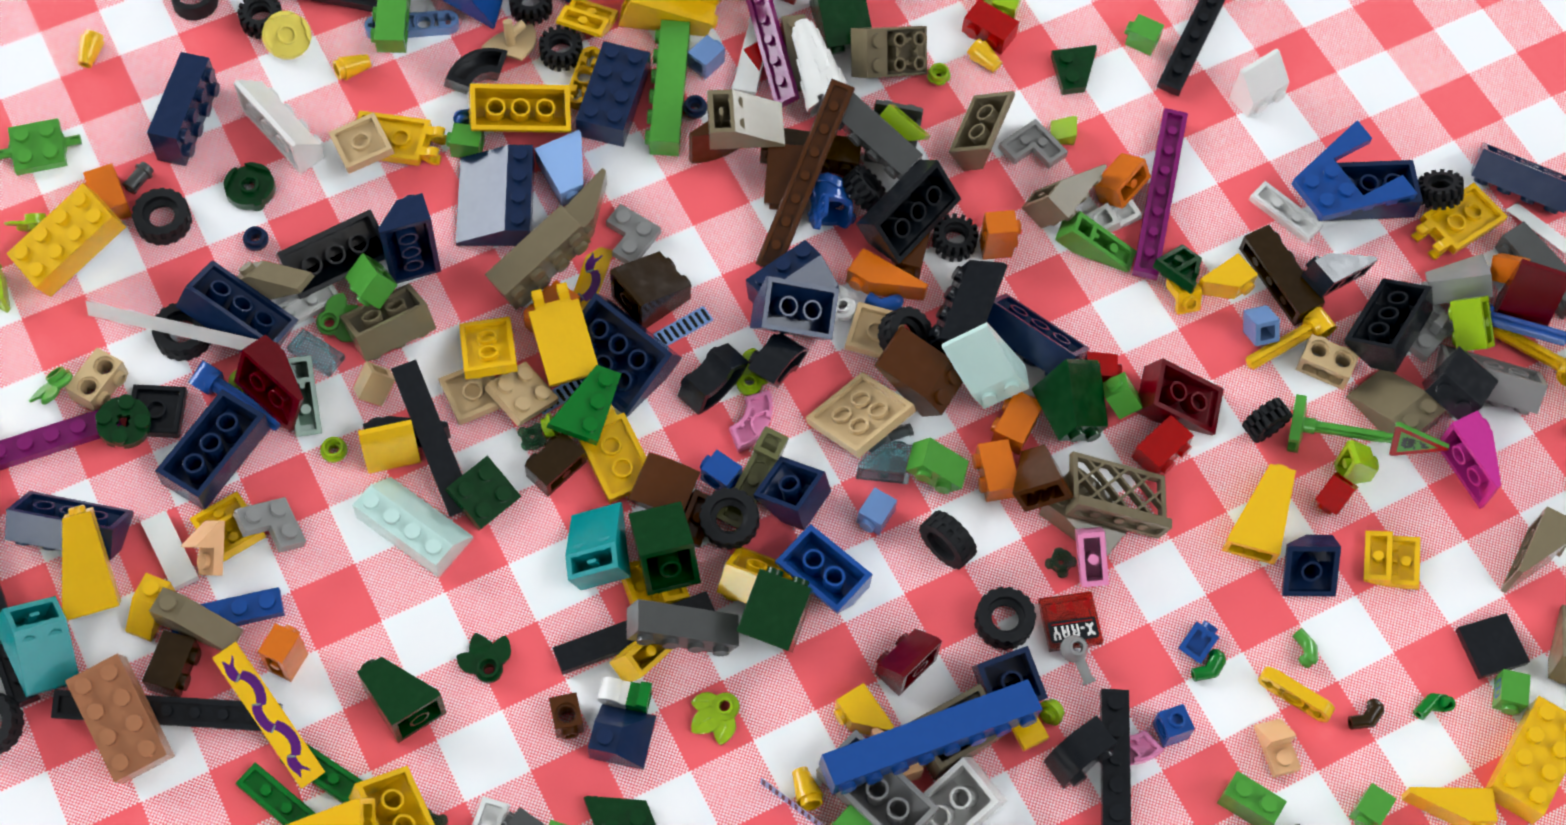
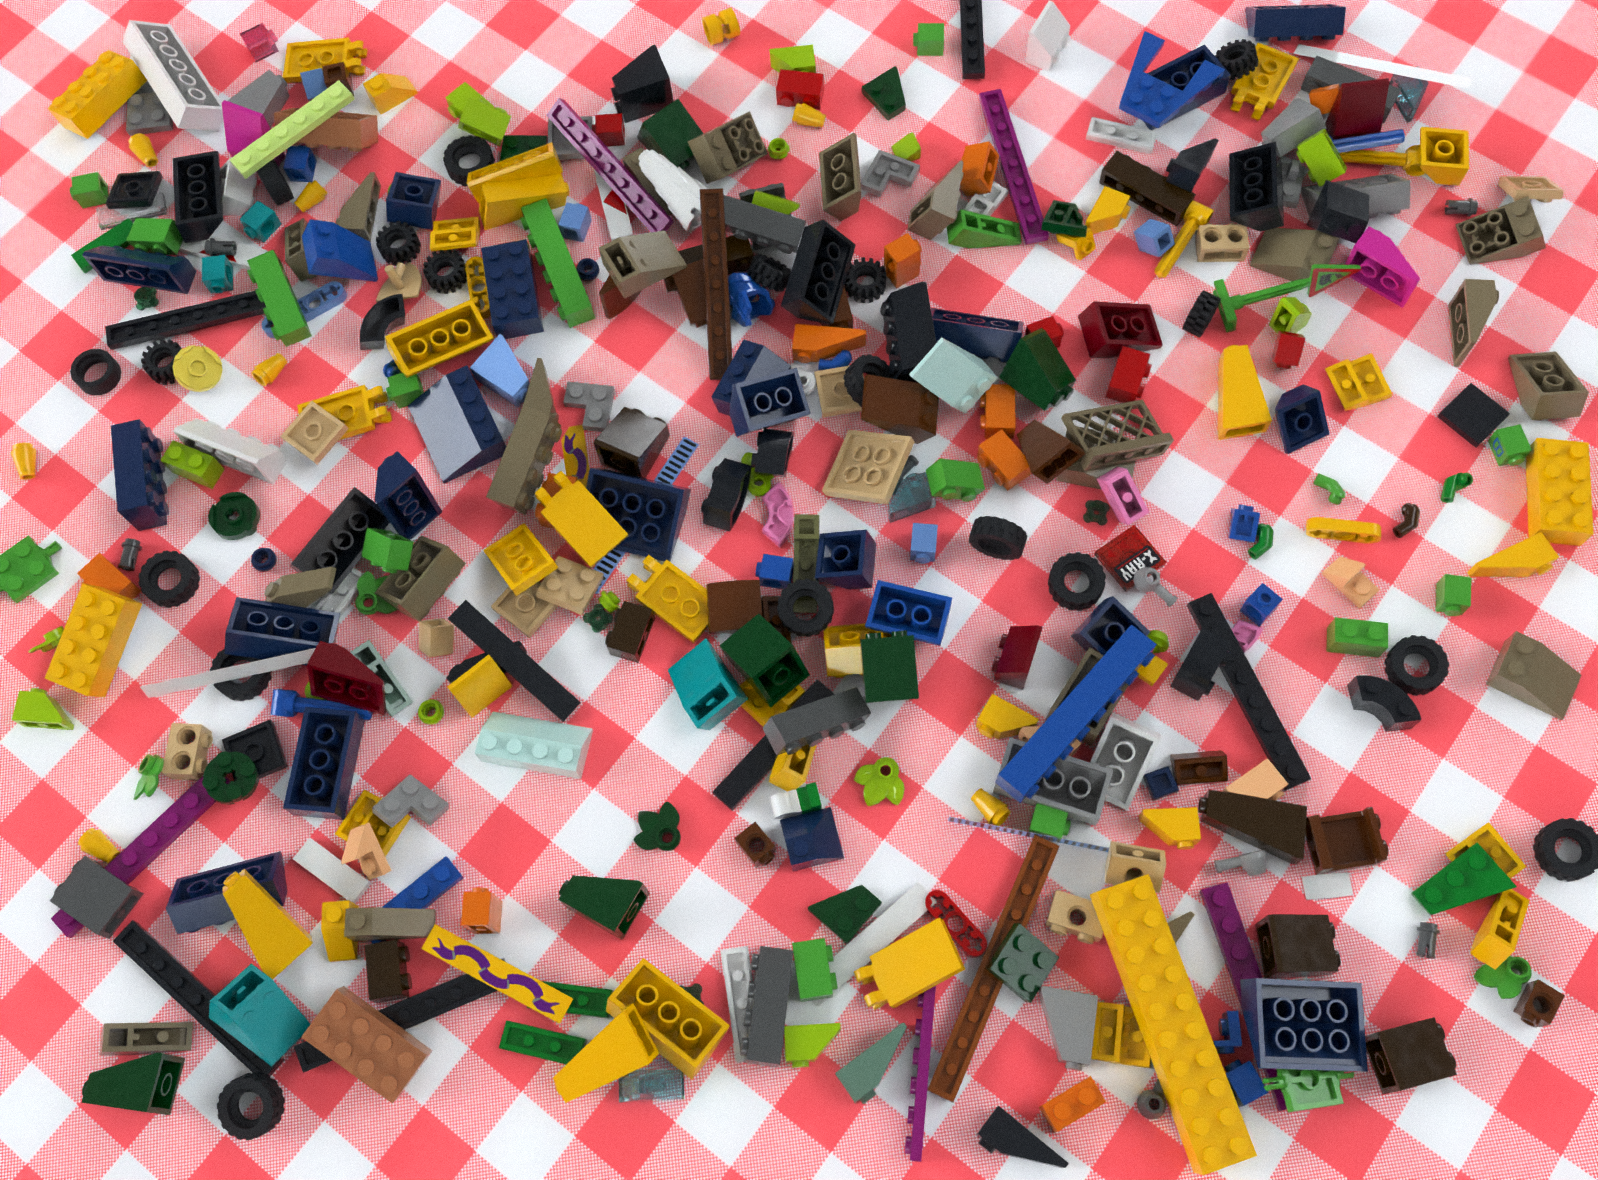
camera: 15 degrees left, 5 degrees up
(236, 121) = (192, 464): none -> lime brick
(324, 357) = (380, 634): clear light blue tile -> none
(483, 493) = (582, 687): dark green plate -> none
(588, 406) = (635, 569): green wing -> none
(1122, 395) = (1074, 348): bright green brick -> none

